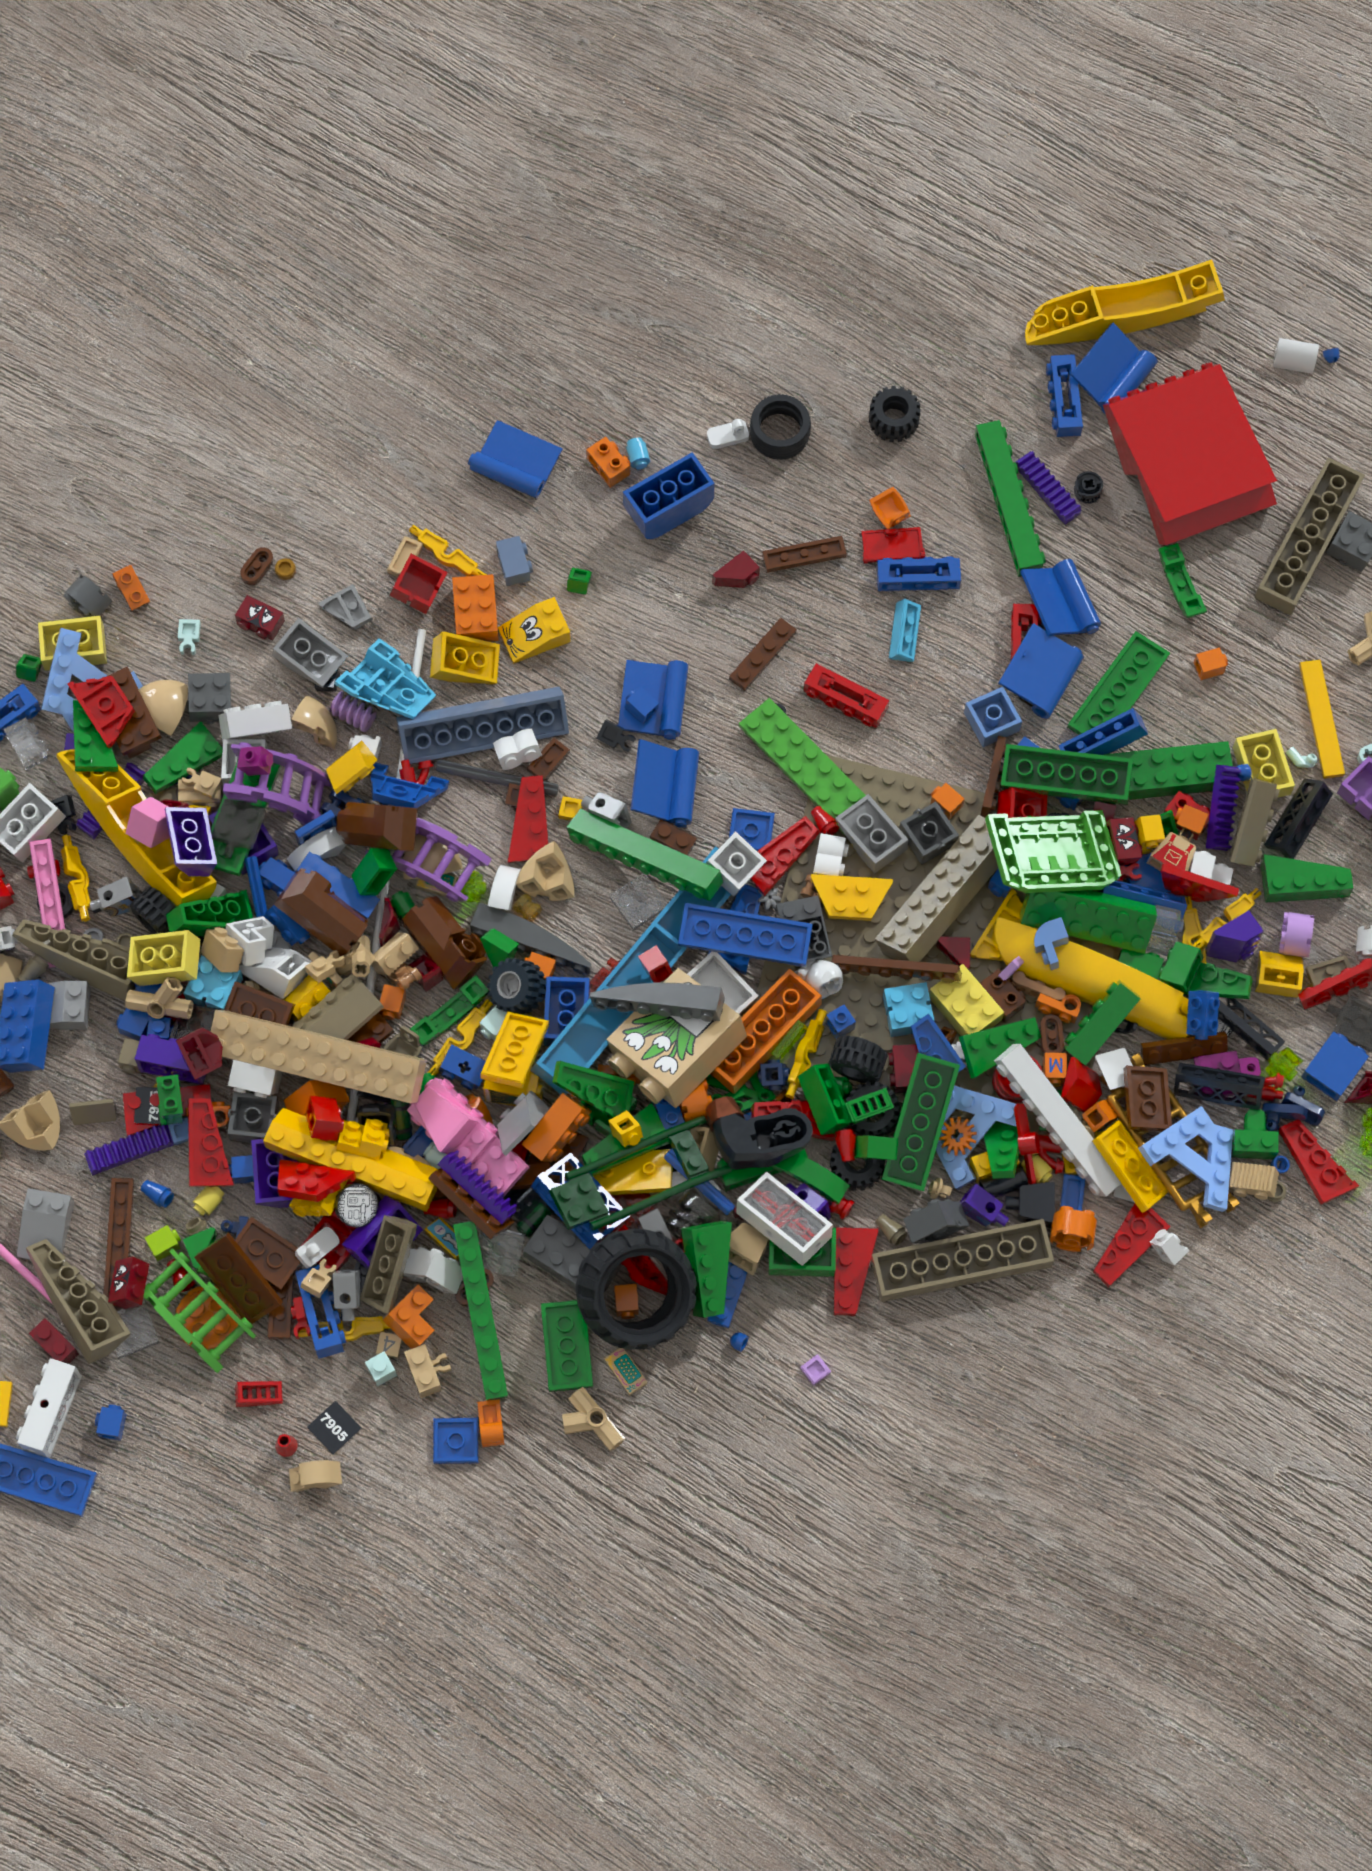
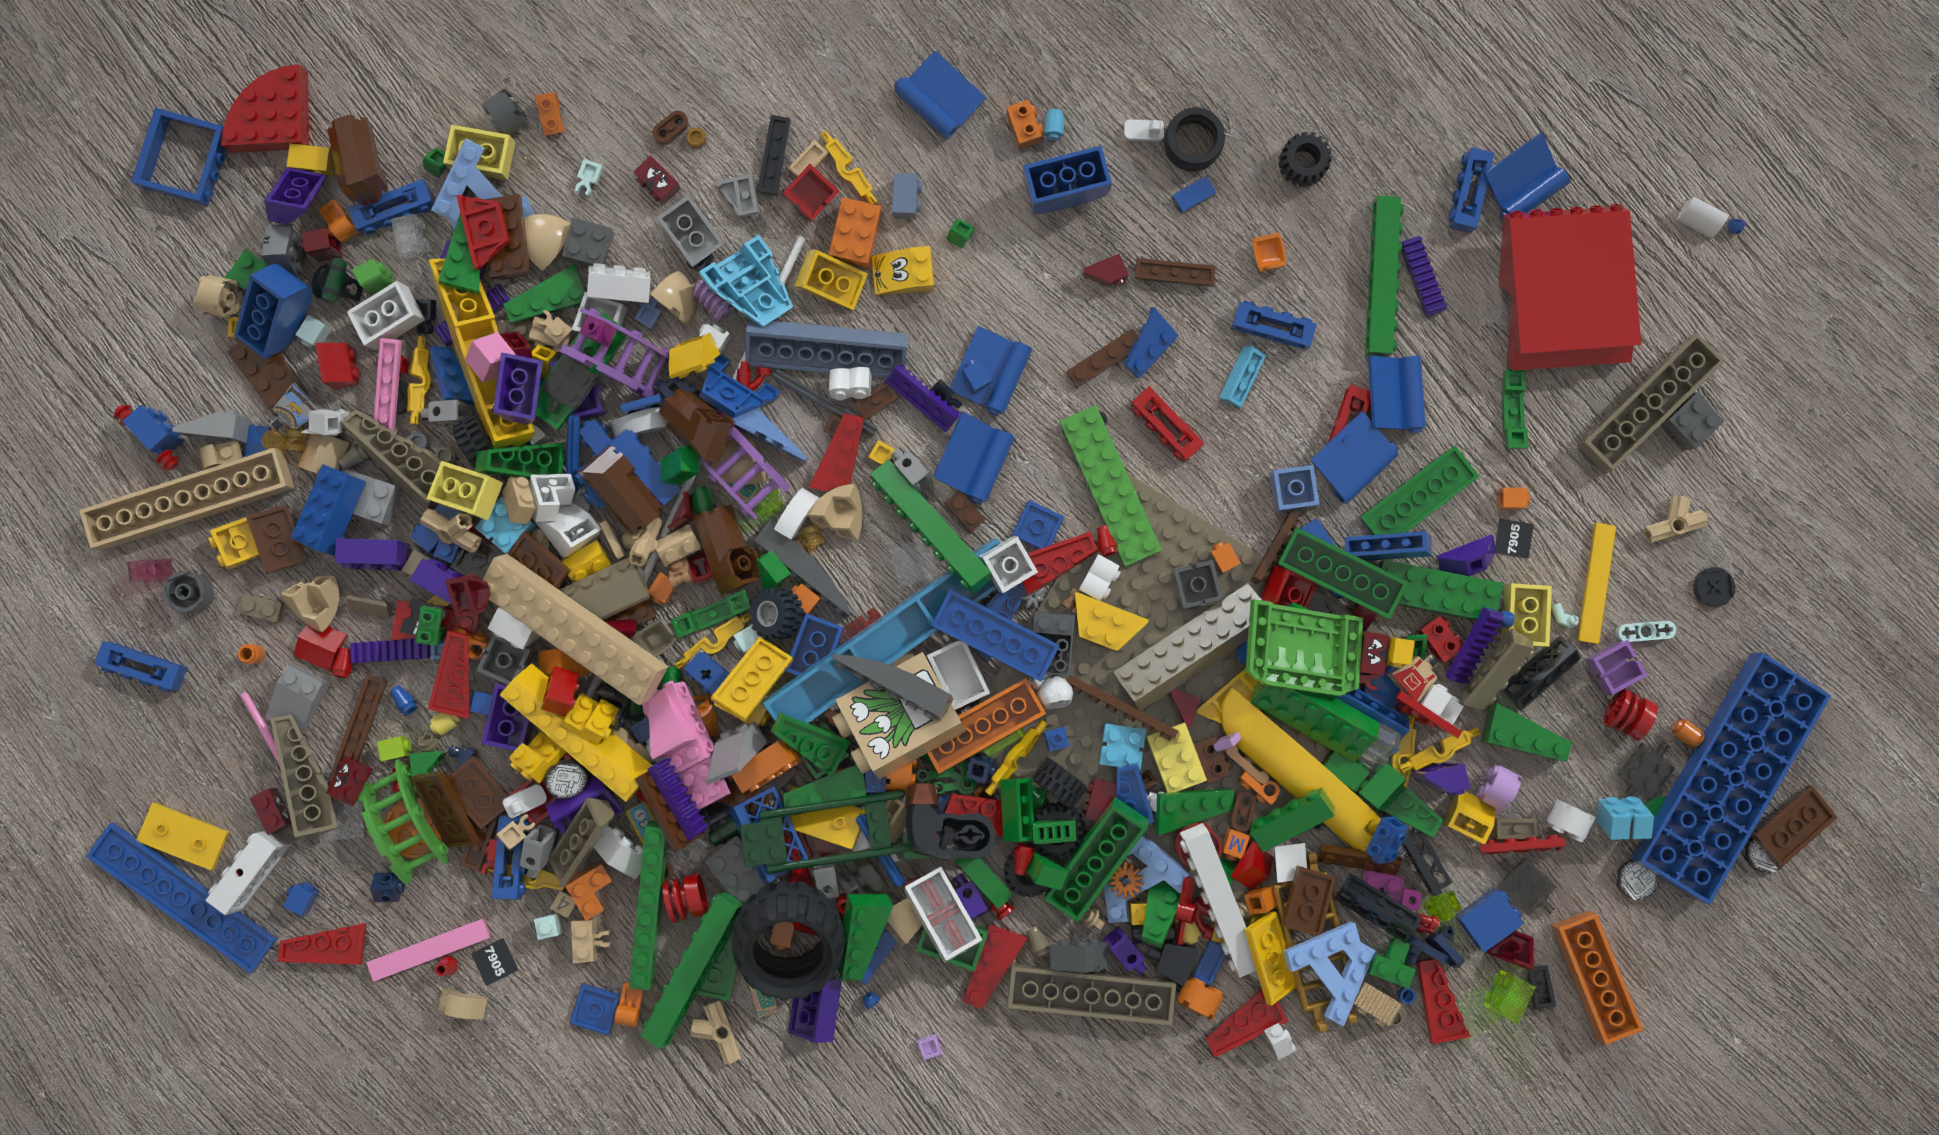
camera: 15 degrees right, 15 degrees up
(52, 1168) = (319, 647): none -> red slope
(82, 1055) = (371, 554): none -> dark purple brick
(83, 1179) = (342, 666): none -> red cone
(109, 862) = (450, 375): none -> blue wing
(160, 1463) = (327, 947): none -> red wing
(199, 1381) = (386, 887): none -> dark blue brick
(258, 1401) = (419, 913): red slope -> none
(261, 1435) = (428, 949): none -> bright pink tile
(292, 744) = (648, 314): none -> medium blue plate
(309, 1180) = (528, 746): red wing -> none
(323, 968) = (608, 541): tan plate -> none
(369, 562) = (774, 155): none -> black plate
(455, 821) = (760, 427): none -> medium blue wedge
(514, 1293) = (680, 898): none -> red wheel
(546, 1361) = (692, 970): none -> green brick
(594, 742) = (922, 398): none -> dark purple gear
(628, 1134) = (827, 787): yellow brick -> none
(655, 964) = (904, 640): brick -> none
(684, 1365) = (816, 1015): none -> dark purple slope
(797, 478) = (1194, 194): none -> blue tile
(804, 625) = (1152, 342): none -> blue wing
(872, 833) = (1144, 568): light grey slope -> none
(905, 544) = (1264, 292): red door -> none
(1047, 938) = (1271, 727): medium blue brick -> none
(1088, 486) = (1461, 288): black wheel -> none
(1130, 306) = (1561, 118): yellow slope -> none
(1188, 729) = (1468, 558): none -> dark purple slope
(1191, 819) = (1442, 650): orange brick -> none
(1226, 702) = (1513, 538): none -> black sticker

